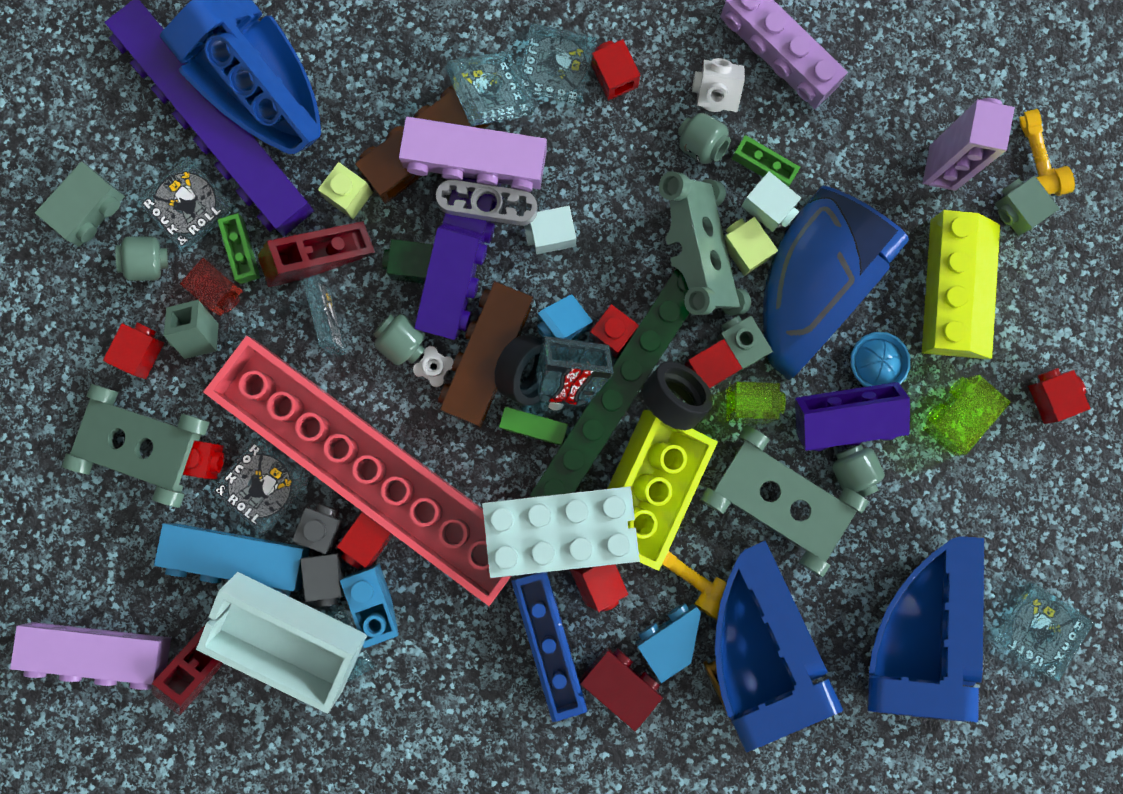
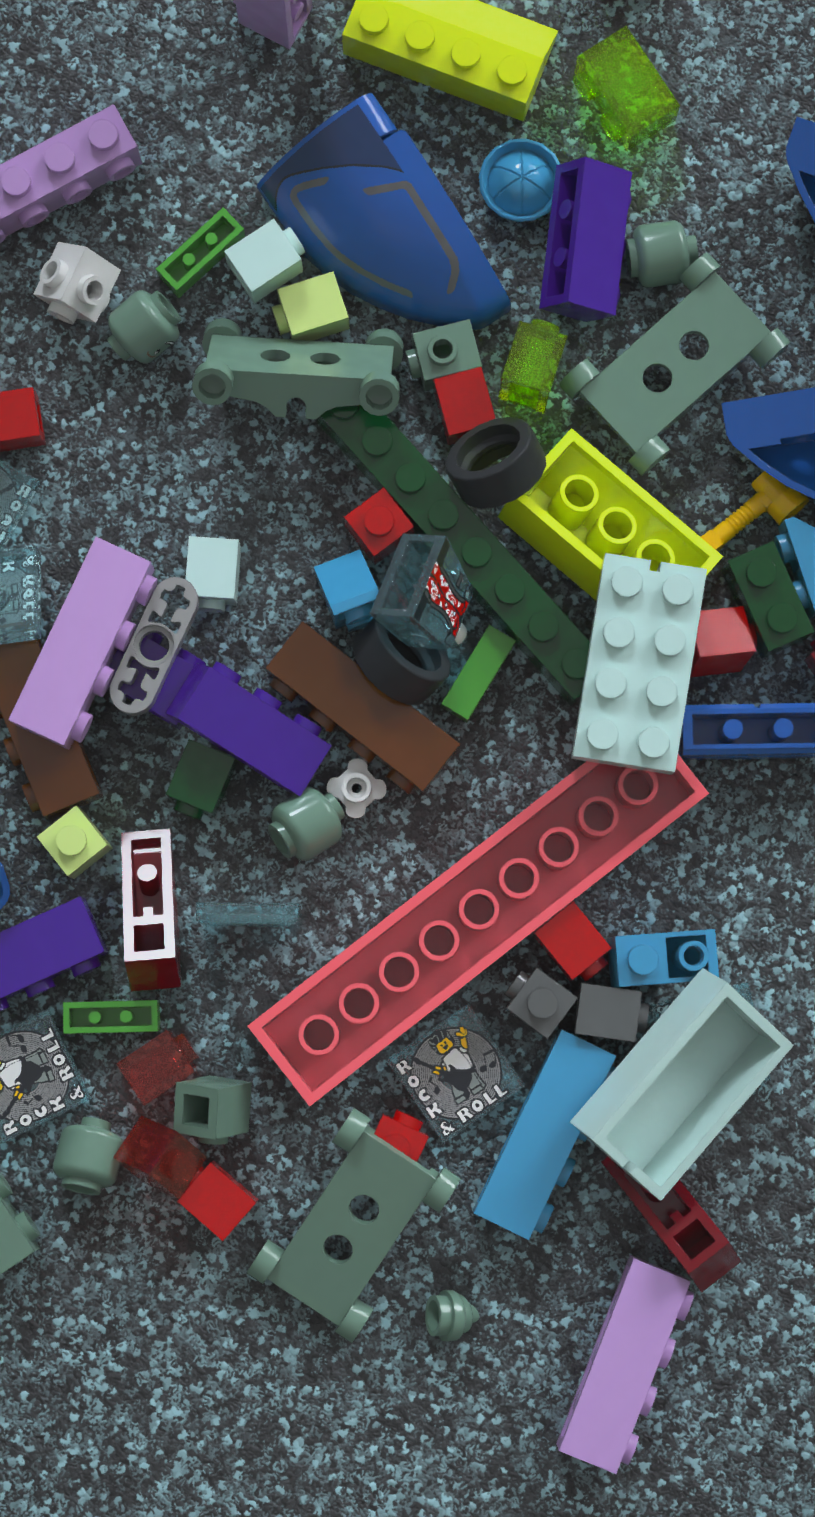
camera: 75 degrees left, 0 degrees up
(96, 527) = (449, 1315): none -> sand green plate
(147, 304) = (160, 1157): none -> clear red brick
(639, 610) = (769, 599): none -> dark green brick

